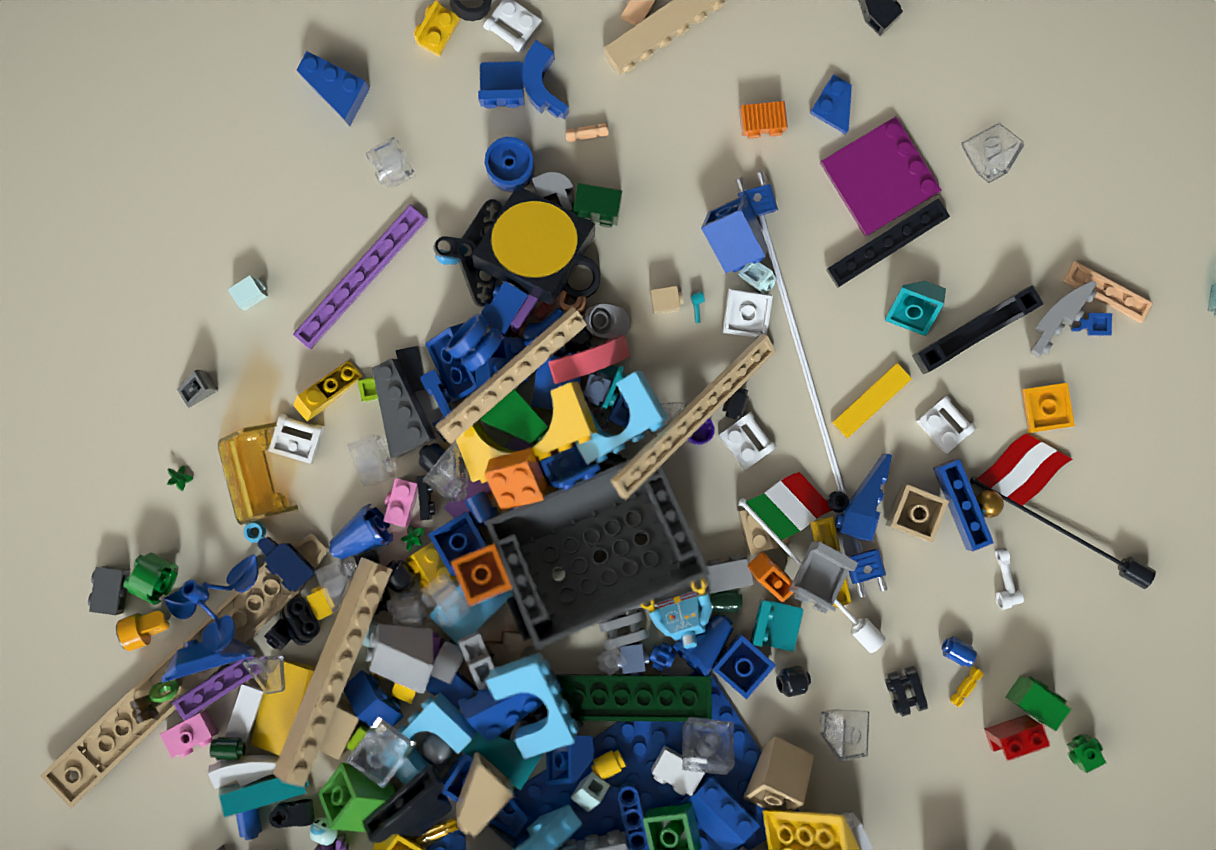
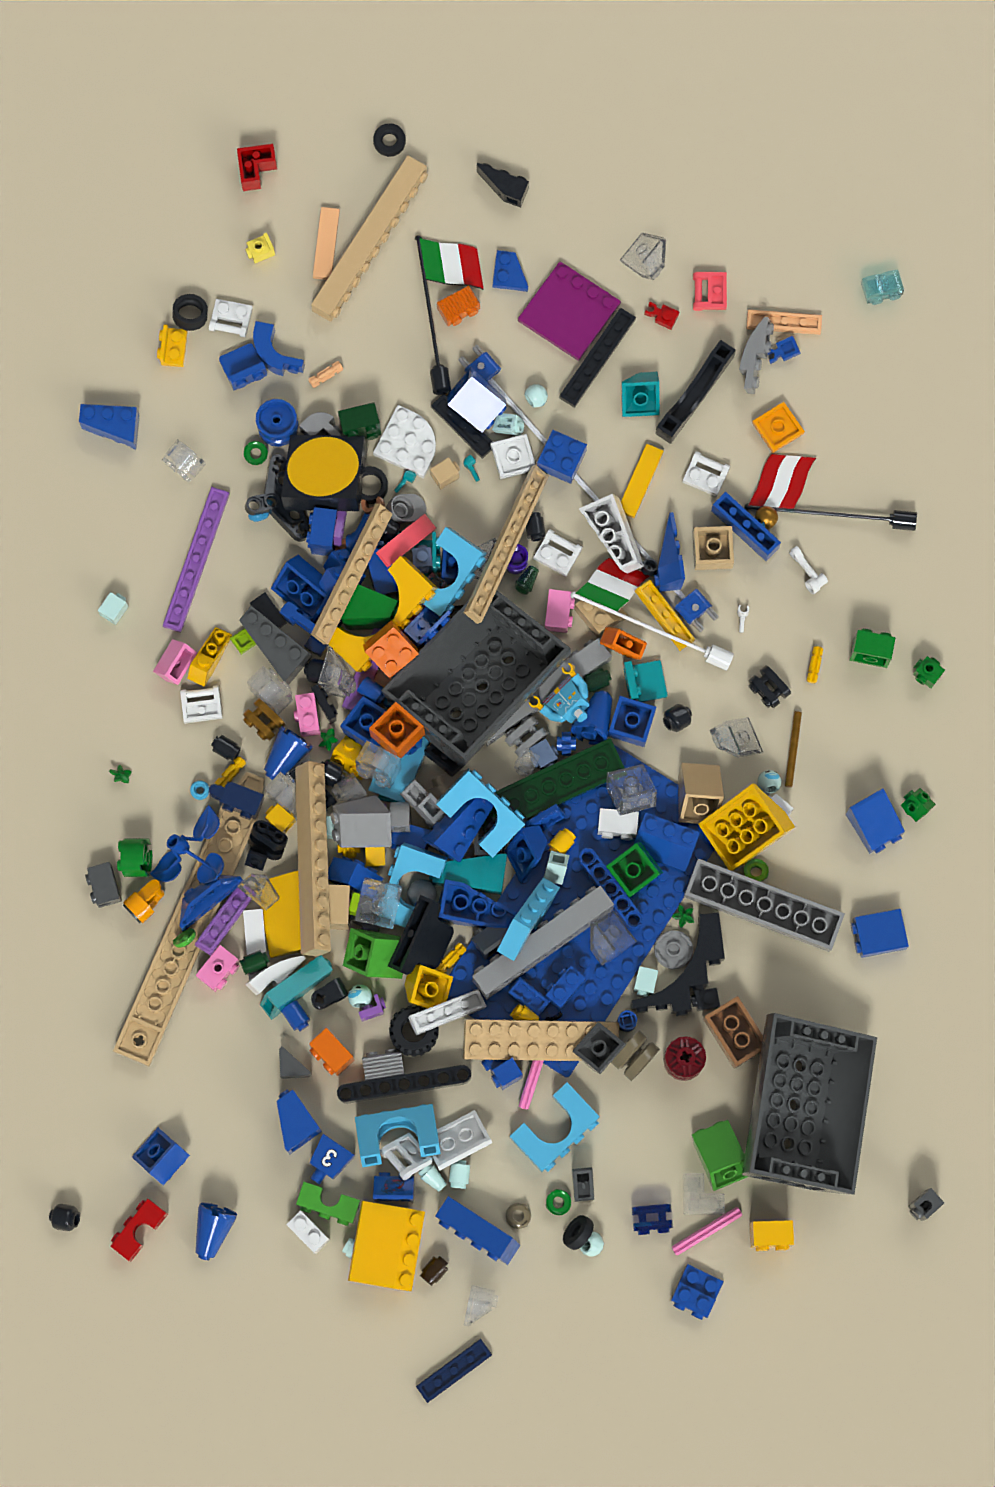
camera: 25 degrees left, 10 degrees down
(144, 709) = (174, 959): dark brown wheel -> none
(197, 388) = (104, 699): dark grey slope -> none
(249, 475) = (173, 746): clear yellow windscreen -> none
(286, 382) = (175, 662): none -> bright pink brick
(294, 527) = (231, 772): none -> yellow axle
(300, 496) = (225, 747): none -> black brick
(349, 498) = (264, 731): none -> pearl gold brick
(464, 187) = (252, 445): none -> green piece
(474, 342) = (312, 561): blue wheel -> none
(482, 795) = (471, 898): tan slope -> none
(543, 310) = (353, 520): clear red tile -> none
(603, 729) = (547, 818): none -> blue plate
(625, 285) = (408, 476): none -> teal hand
(641, 247) = (407, 442): none -> white plate
(700, 457) = (526, 581): none -> clear green cone
(715, 276) = (470, 434): none -> black tile
(719, 508) = (558, 611): none -> bright pink brick
(771, 67) = (450, 266): none -> flag
(799, 338) = (562, 456): none -> blue brick
(802, 256) = (536, 395): none -> light aqua piece
(818, 446) = (613, 530): none -> white wedge
(821, 576) = (660, 623): light grey panel -> none
(860, 794) = (769, 781): none -> light aqua piece
(901, 767) = (793, 749): none -> pearl gold bar
(912, 600) = (742, 615): none -> white hand
(959, 651) = (795, 639): blue brick -> none
(982, 228) = (665, 316): none -> red plate
(1017, 737) = (867, 680): red panel -> none
(1050, 224) = (716, 291): none -> coral plate

